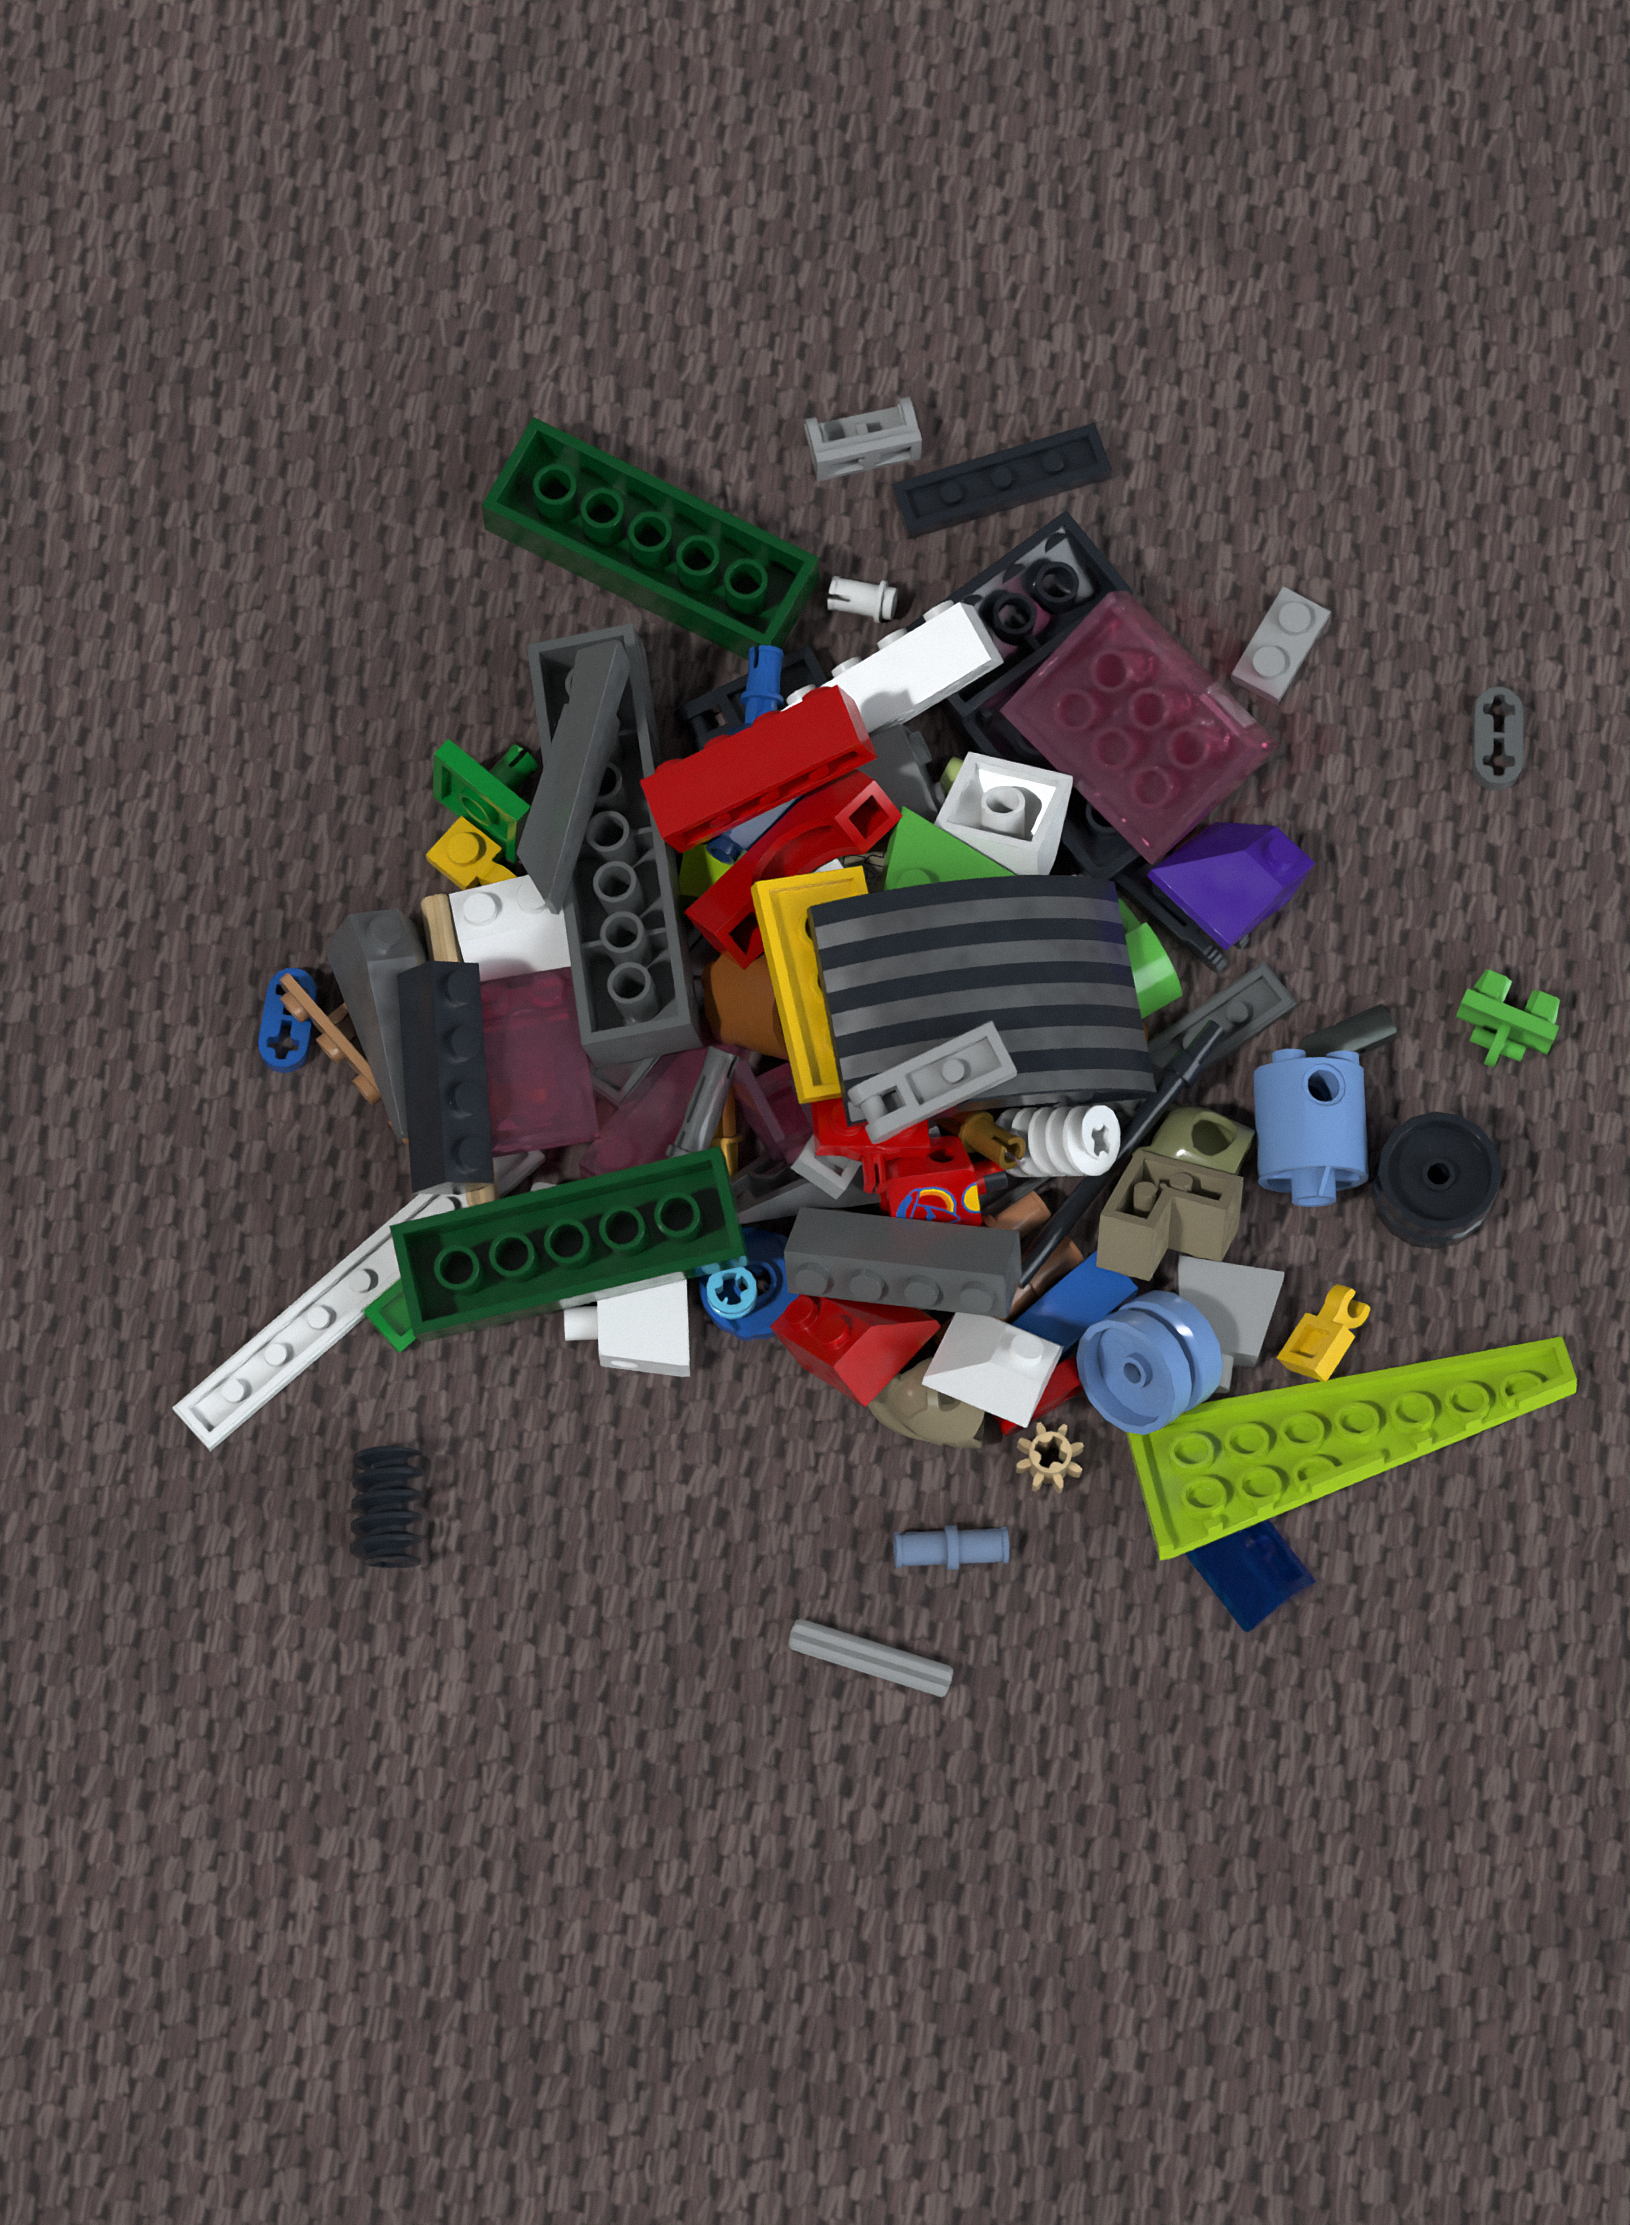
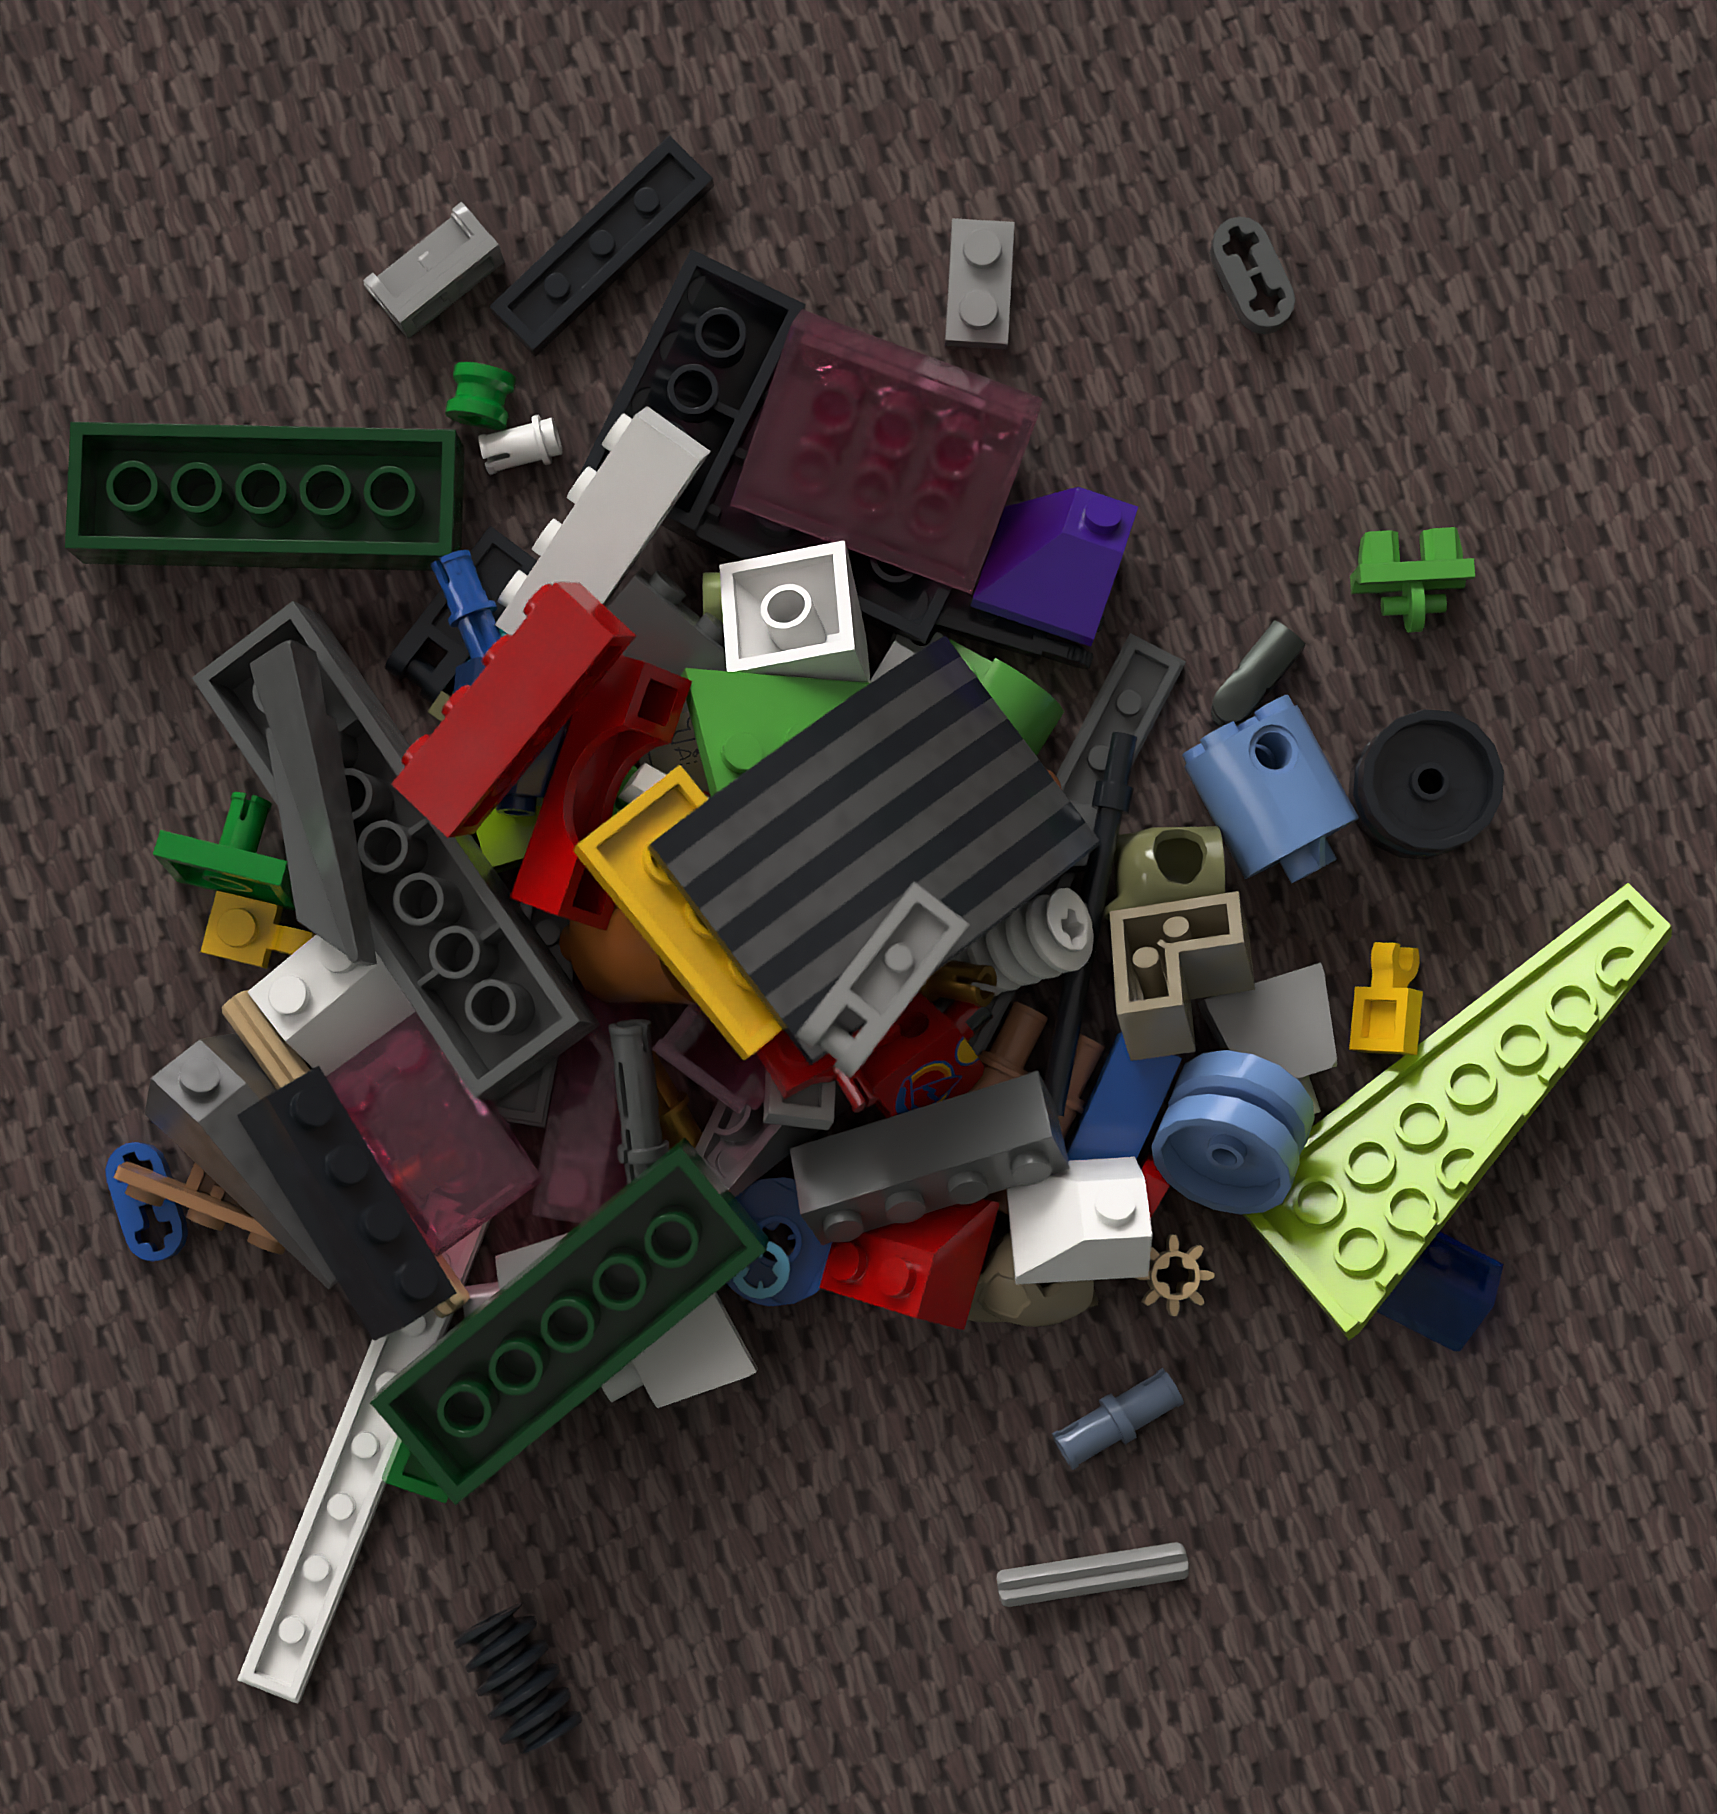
camera: 30 degrees left, 10 degrees up
(851, 546) = (480, 395): none -> green wheel

